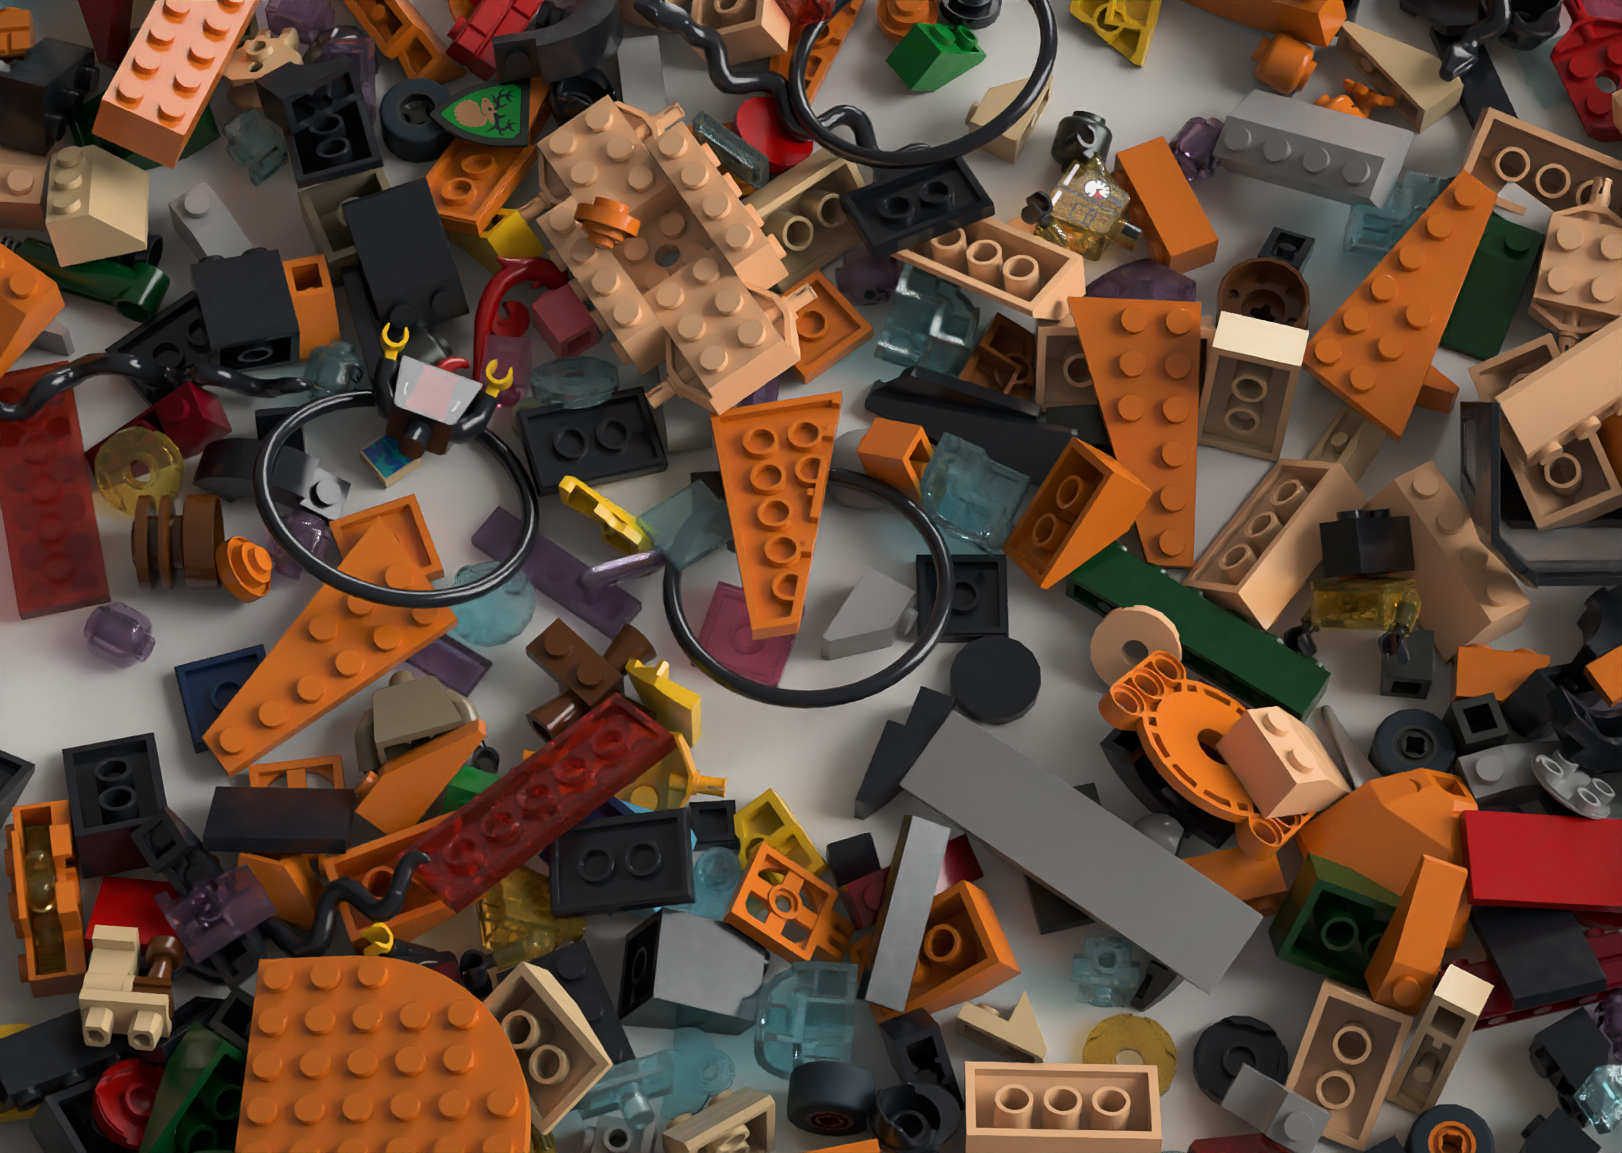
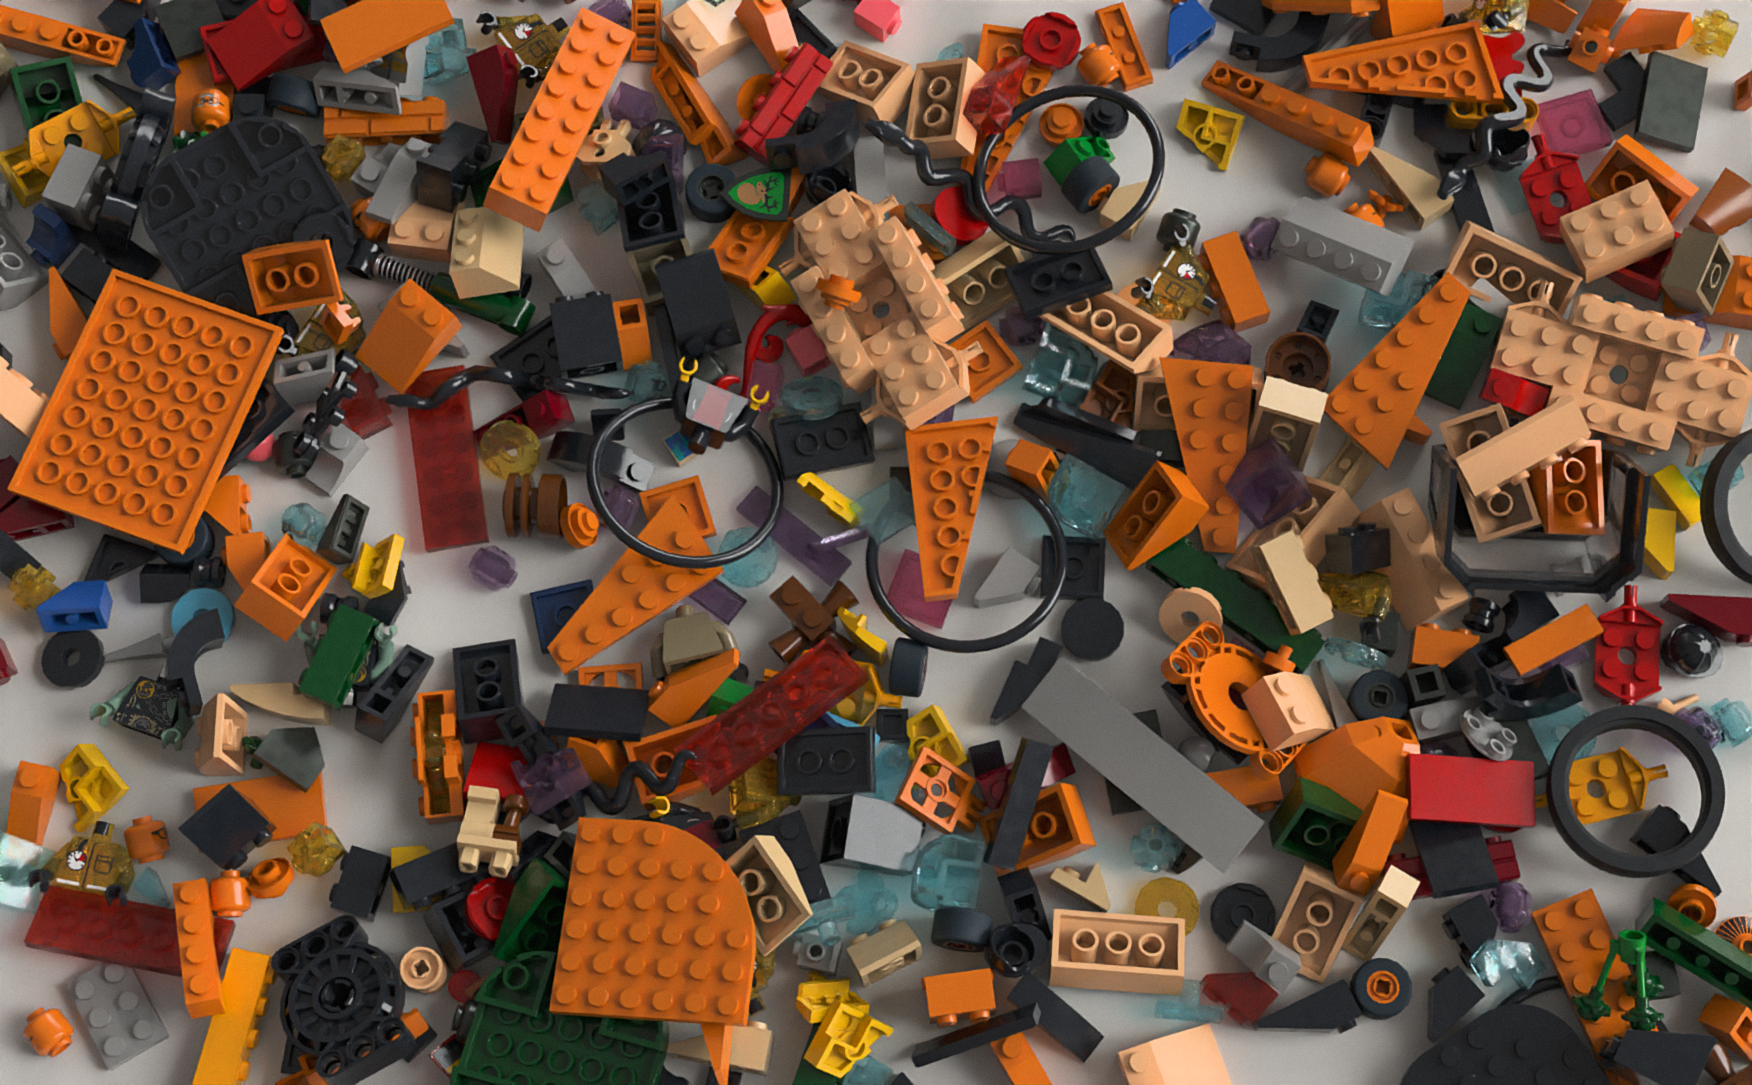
camera: 10 degrees right, 10 degrees up
(732, 738) = (908, 667): none -> black wheel
(856, 83) = (1021, 178): none -> clear pink brick
(952, 84) = (1090, 184): none -> black wheel
(1232, 466) = (1267, 484): none -> slope
(1266, 697) = (1279, 662): none -> orange tile
(1277, 588) = (1292, 582): none -> tan brick
(1375, 686) = (1356, 653): none -> clear light blue tile
(1549, 631) = (1481, 615): none -> black wheel
(1561, 317) = (1513, 392): none -> red arch

